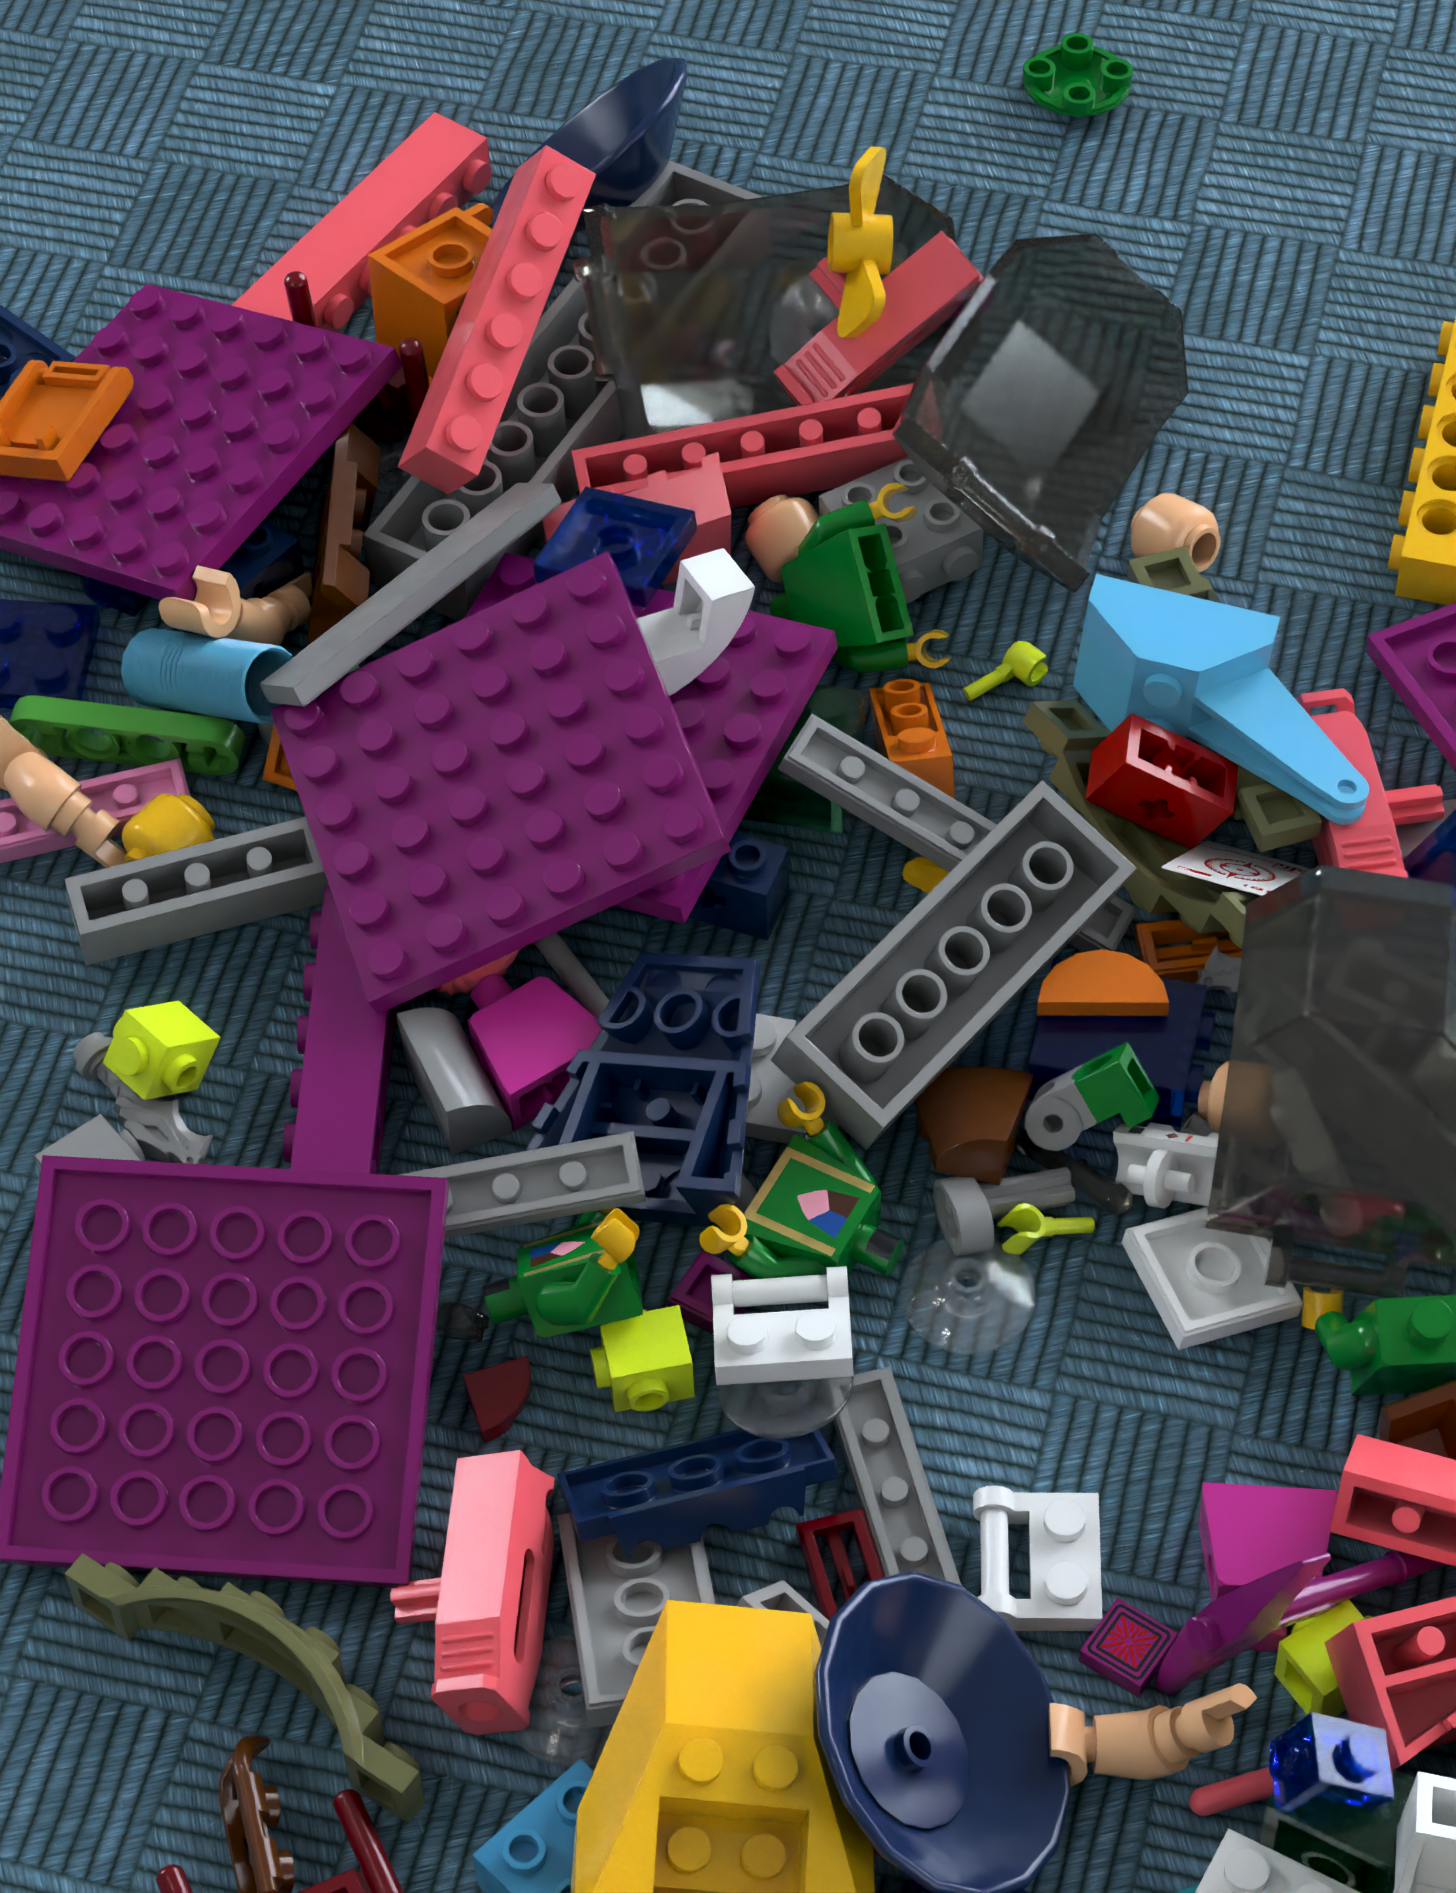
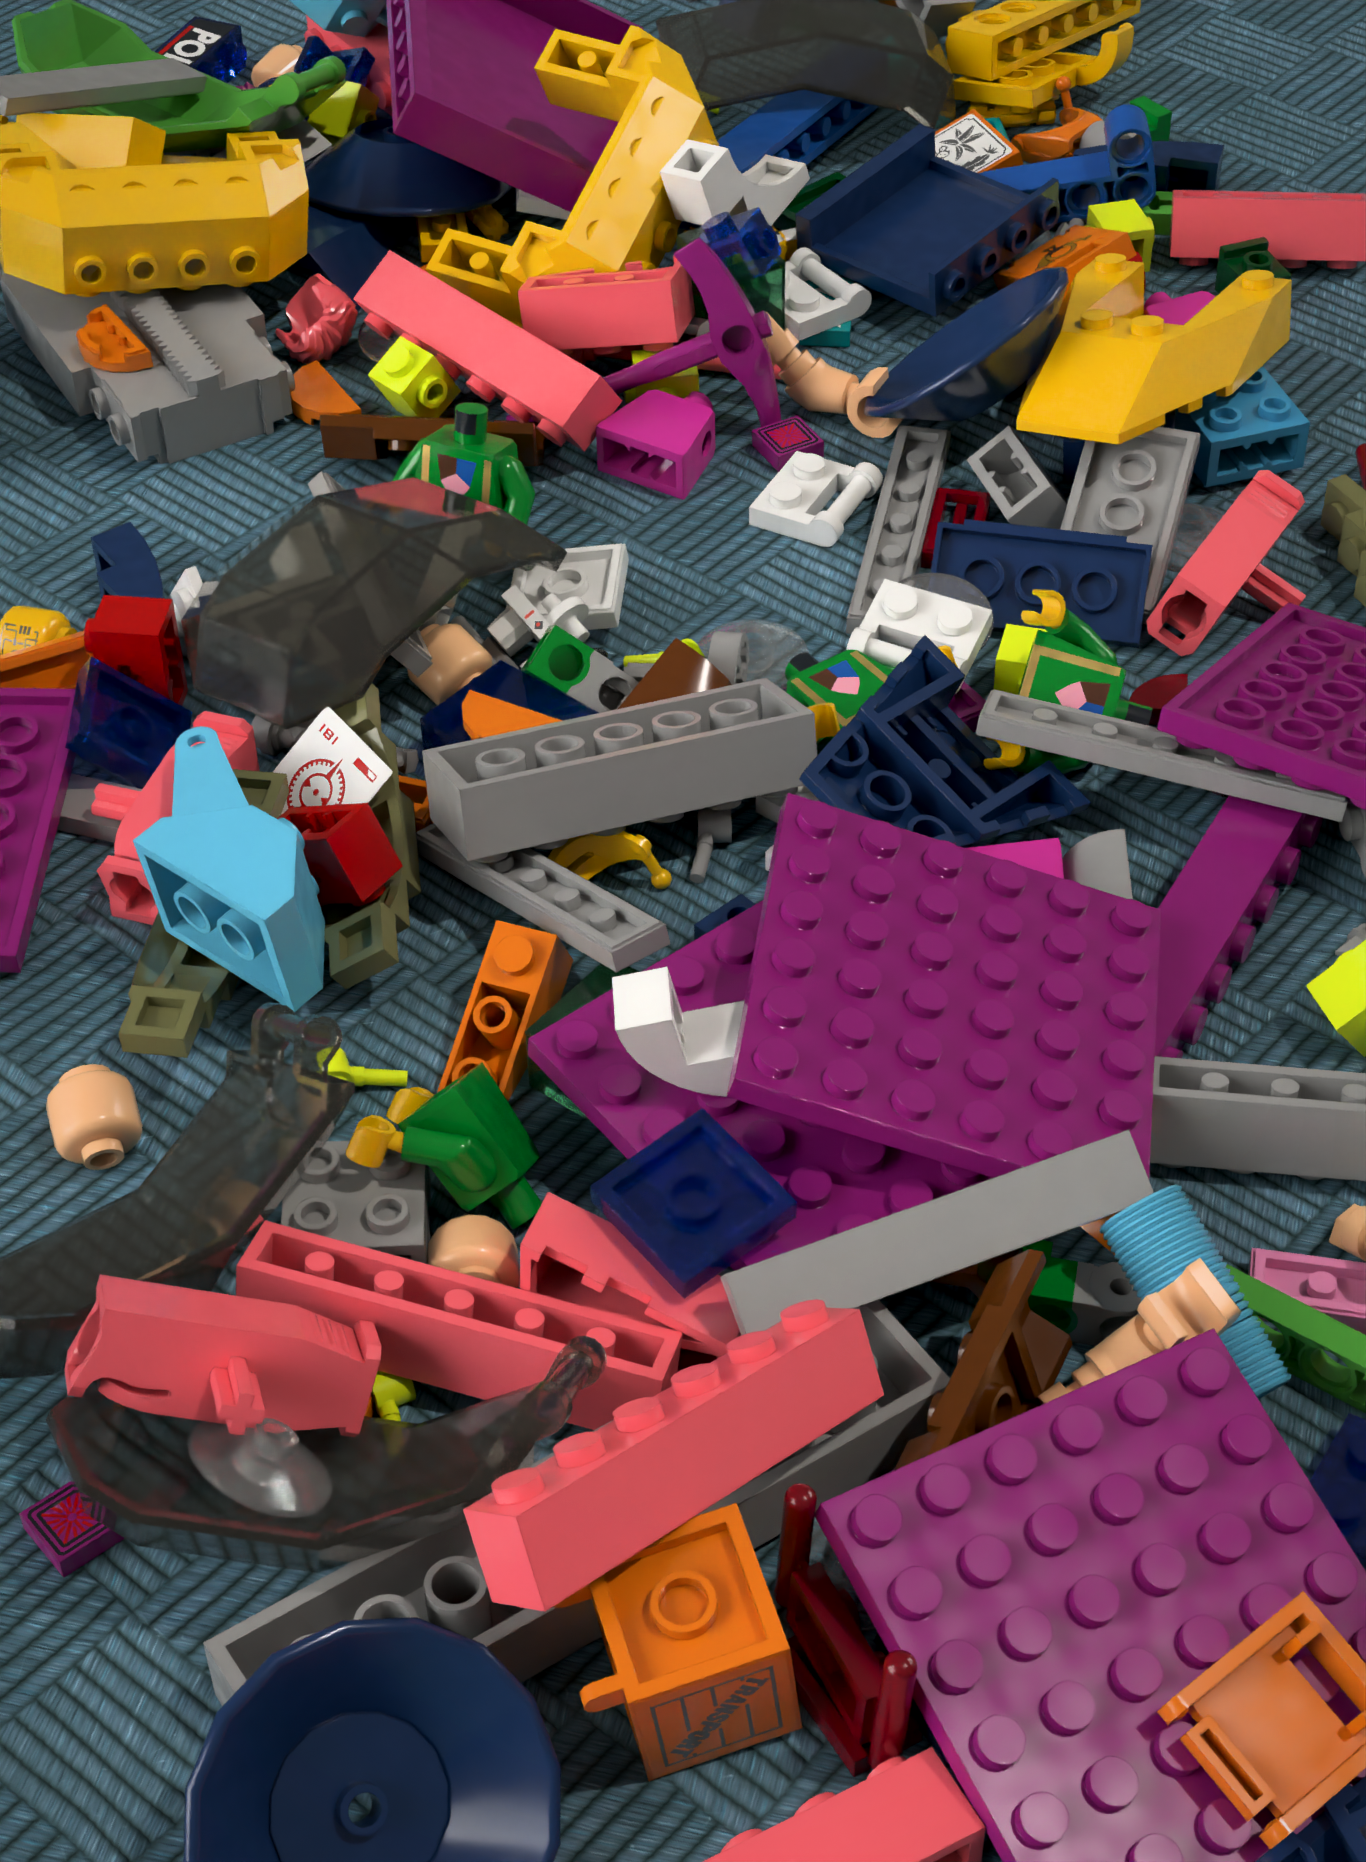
camera: 155 degrees left, 10 degrees down
(166, 826) = (1294, 1197): yellow head -> none
(861, 247) = (204, 1337): yellow piece -> none

